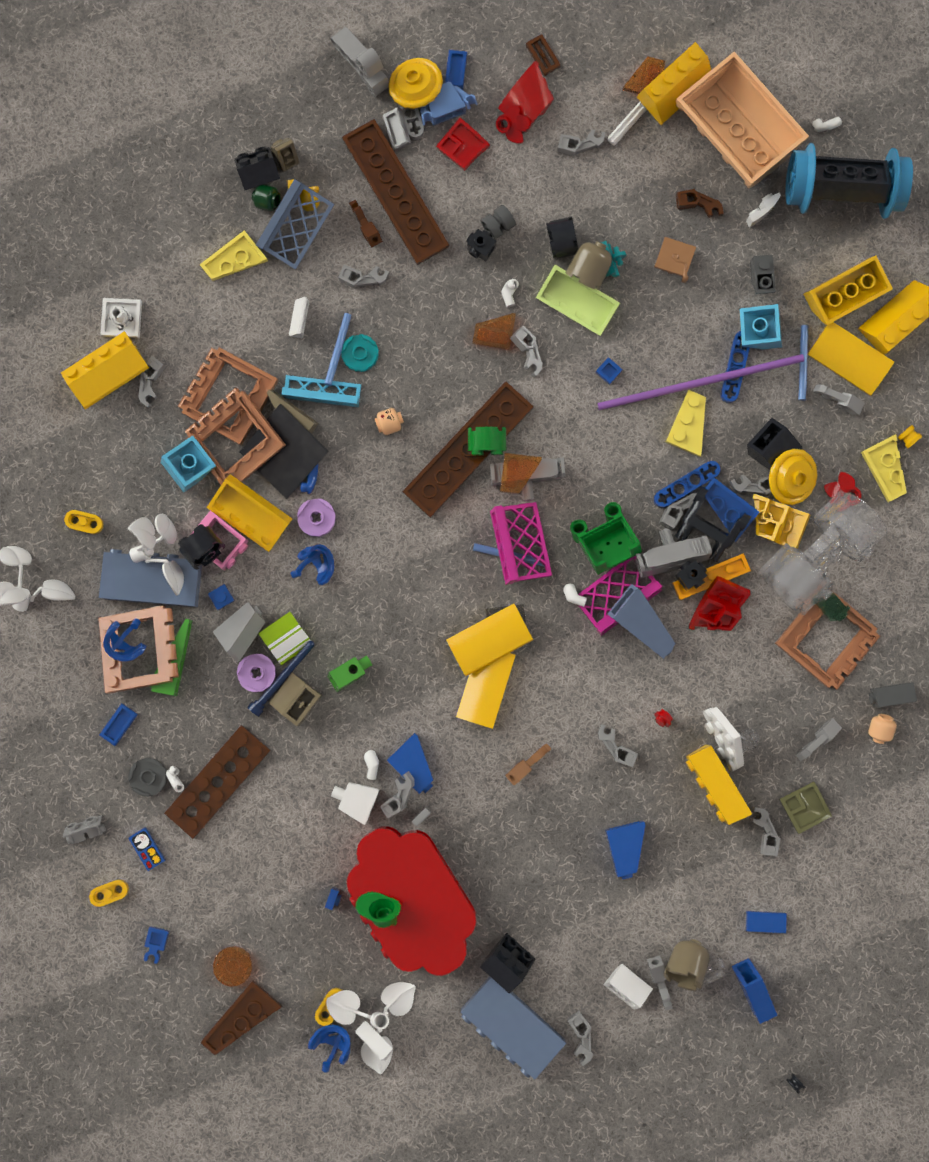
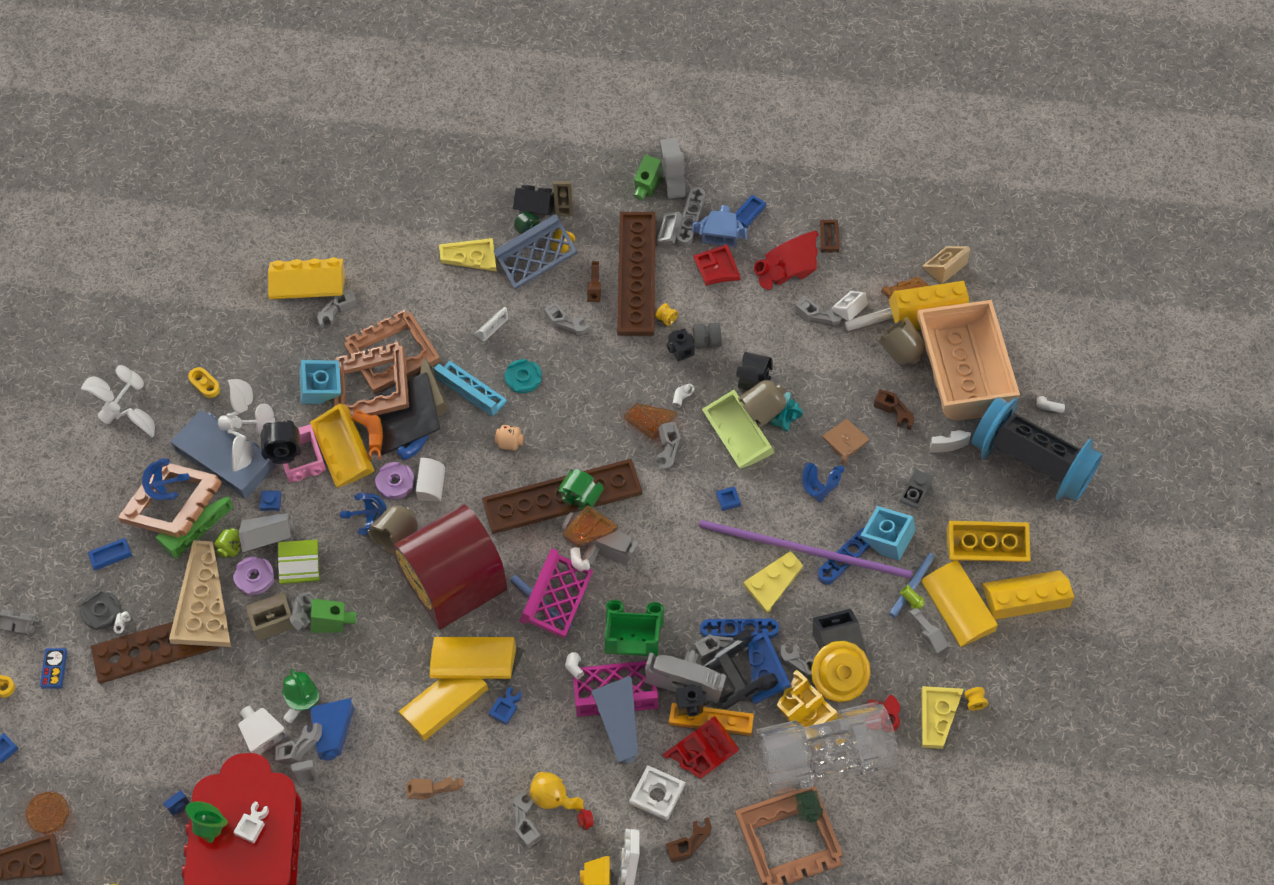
camera: 30 degrees right, 25 degrees down
(120, 316) = (348, 247): white plate -> none
(215, 656) = (228, 543): none -> lime head
(235, 729) = (200, 608): none -> tan wing
(258, 705) = (234, 603): dark blue piece -> none
(269, 482) = (374, 430): none -> orange arm
(318, 678) = (300, 609): none -> light grey piece
(337, 350) = (504, 364): medium blue bar -> none
(345, 82) = (648, 177): none -> bright green torso
(347, 499) = (430, 480): none -> white brick
(349, 563) = (392, 527): none -> dark tan cylinder
(368, 751) = (299, 691): none -> green piece
(415, 83) = (705, 201): yellow piece -> none
(416, 892) = (251, 826): none -> white plate
(423, 573) = (451, 566): none -> dark red brick
(449, 220) = (666, 314): none -> yellow wheel
(522, 505) = (577, 562): none -> white arm
(540, 666) = (505, 708): none -> blue plate
(603, 119) = (850, 305): none -> white slope
(623, 714) = (549, 793): none -> yellow piece
(662, 25) = (947, 262): none -> tan slope
(667, 313) = (811, 481): none -> blue helmet
(673, 134) = (903, 342): none -> dark tan cylinder
(717, 656) = (653, 779): none -> white piece
(758, 686) = (693, 843): none -> reddish brown piece
(815, 377) = (912, 597): none -> lime pin

